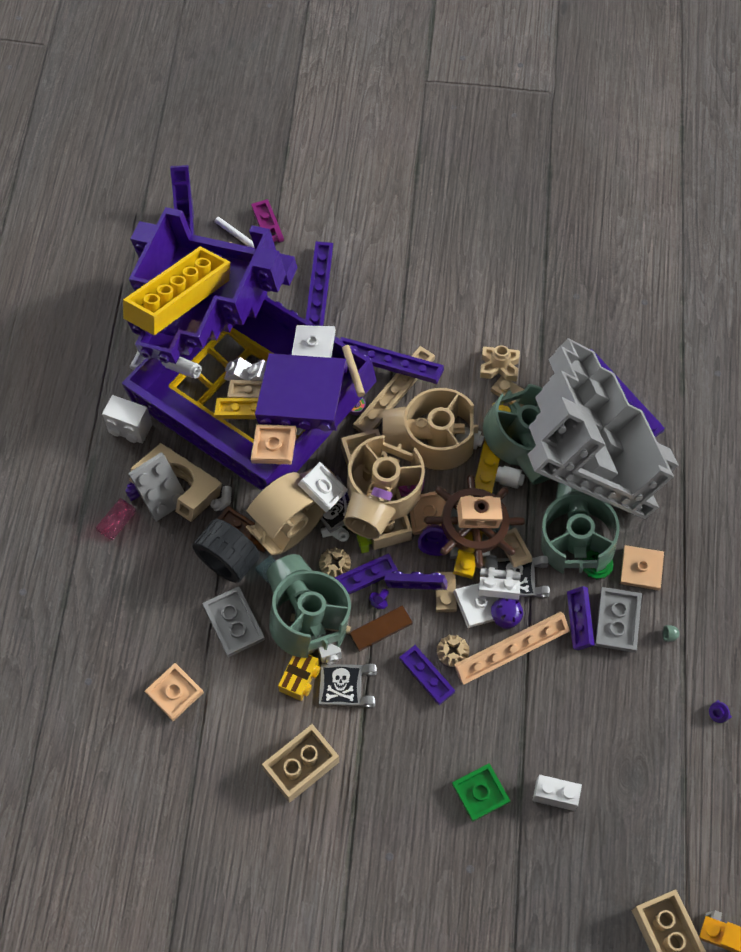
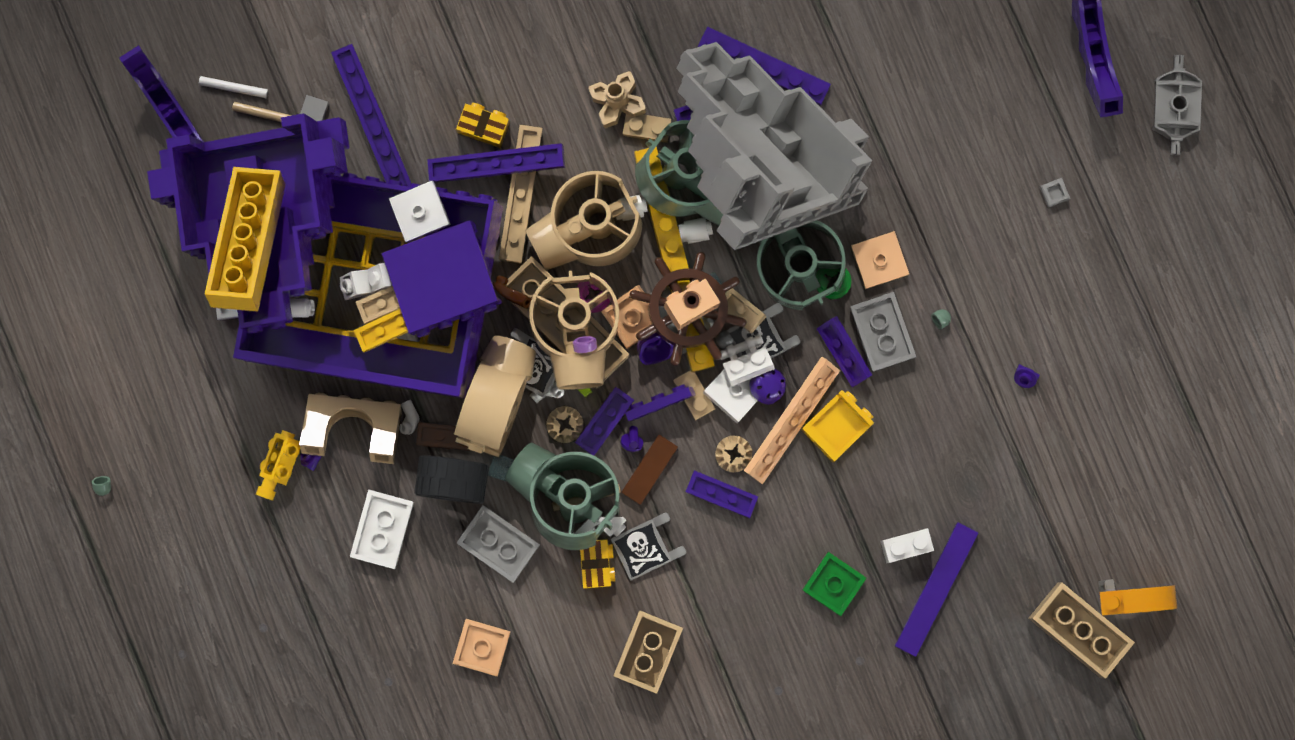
camera: 30 degrees left, 20 degrees up
(111, 481) = (281, 463): none -> yellow brick
(116, 519) = (310, 499): clear pink tile -> none
(127, 419) = (256, 386): white brick -> none
(153, 565) = (381, 529): none -> white plate
(157, 486) = (338, 446): light grey plate -> none
(267, 219) = (260, 54): magenta plate -> none
(273, 444) = (446, 353): light nougat plate -> none
(323, 487) = (518, 366): white plate -> none
(345, 441) = (511, 294): none -> reddish brown arm
(353, 371) = (482, 224): tan bar -> none
(393, 334) = (483, 125): none -> brick
(547, 671) = (838, 425): none -> yellow panel
(563, 843) = (936, 589): none -> dark purple tile

